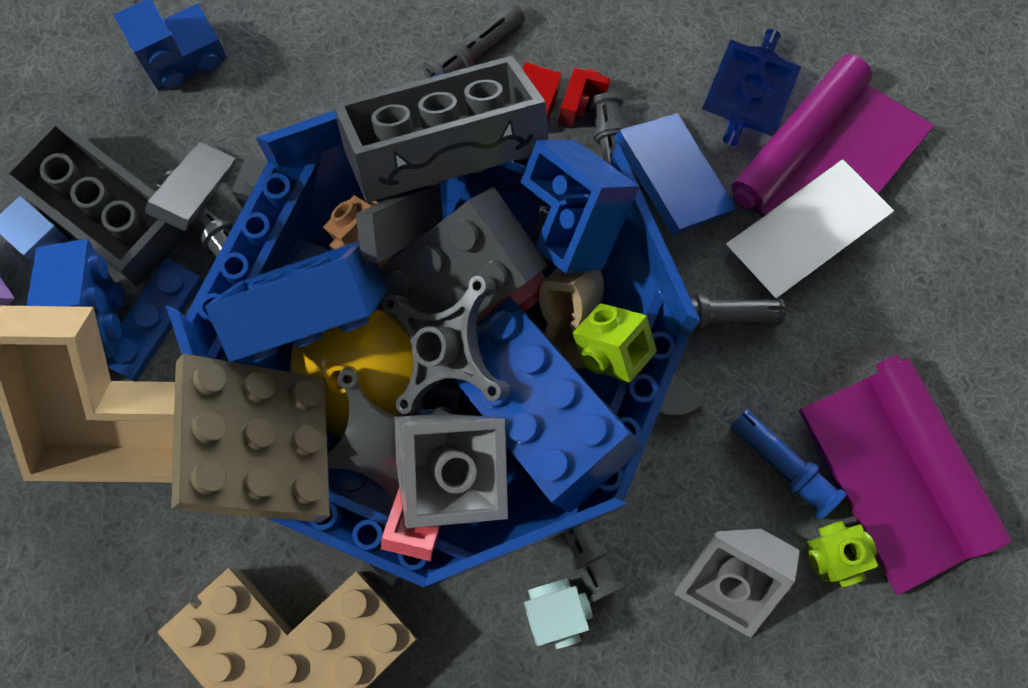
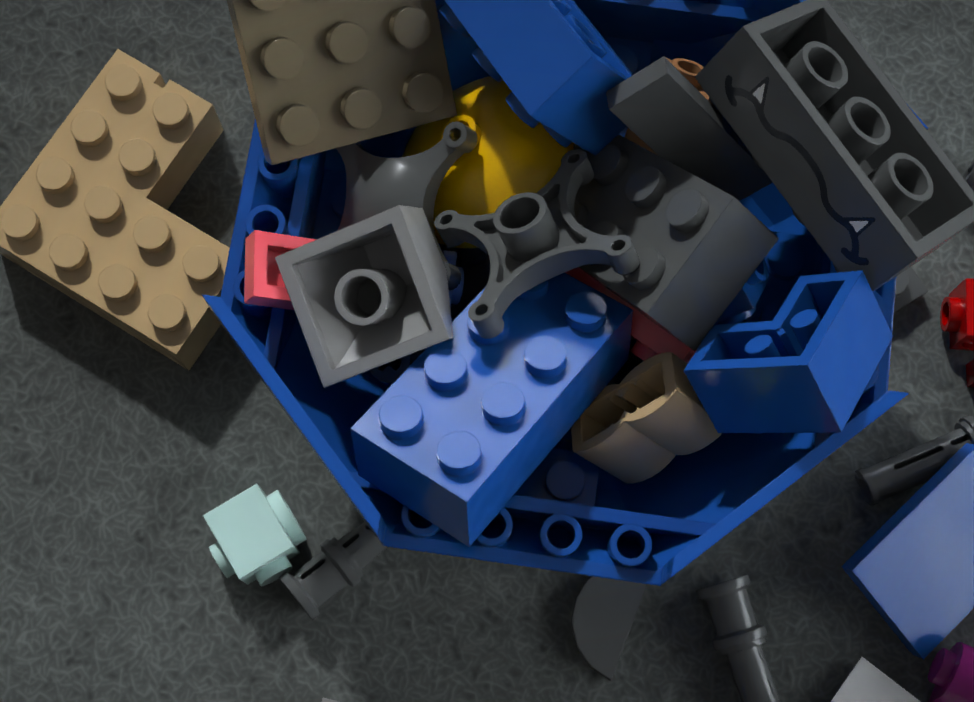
camera: 80 degrees right, 0 degrees up
(615, 342) = (610, 472): lime brick -> none

